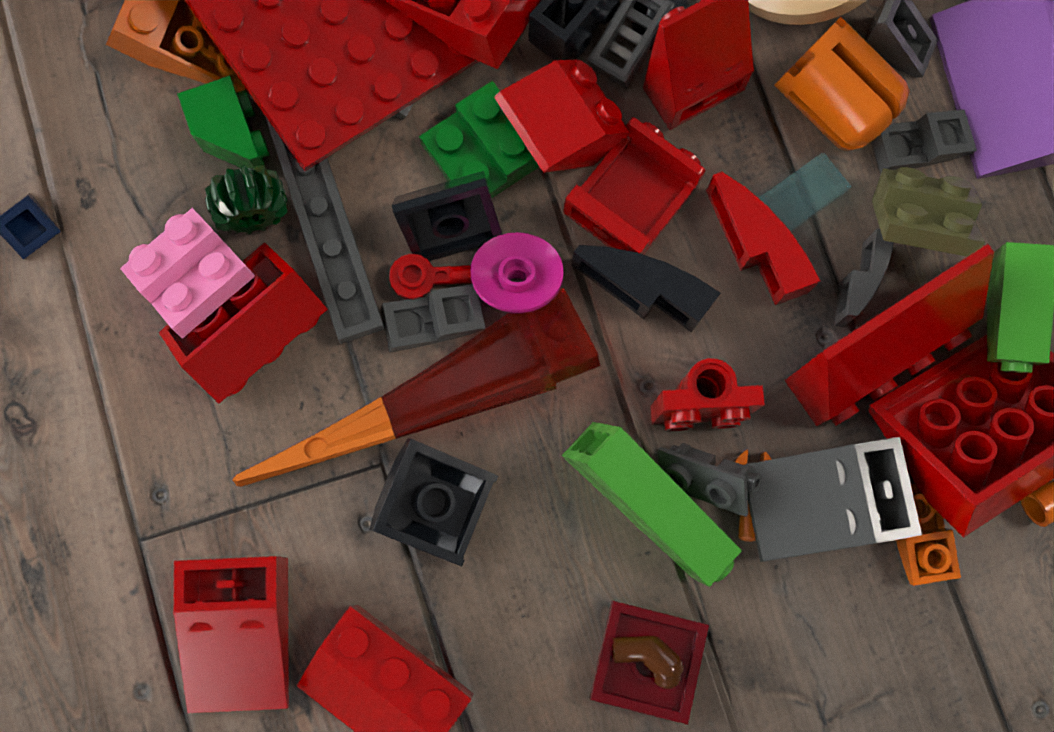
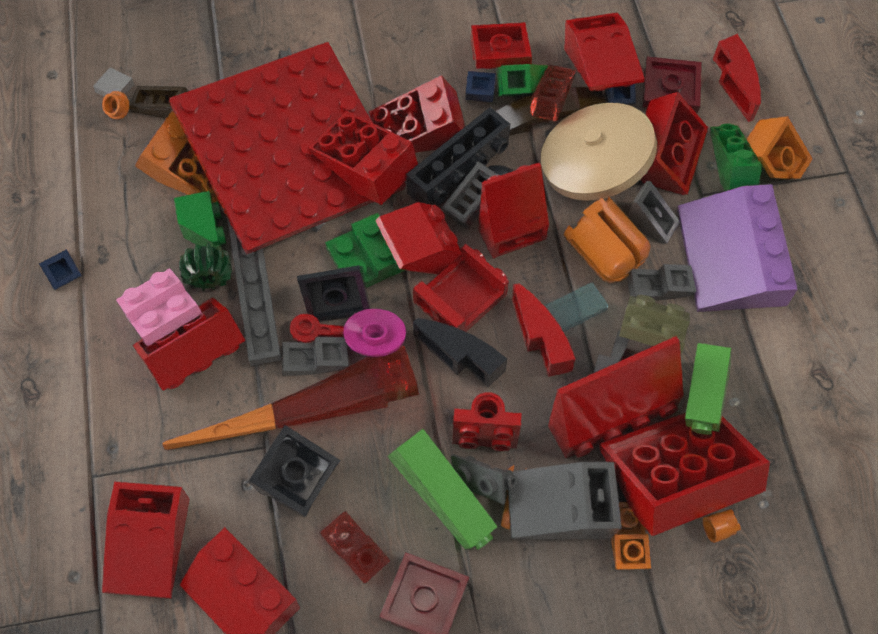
camera: 10 degrees right, 15 degrees down
(537, 599) = (354, 547): none -> clear red slope
(654, 654) = (426, 587): reddish brown arm -> none

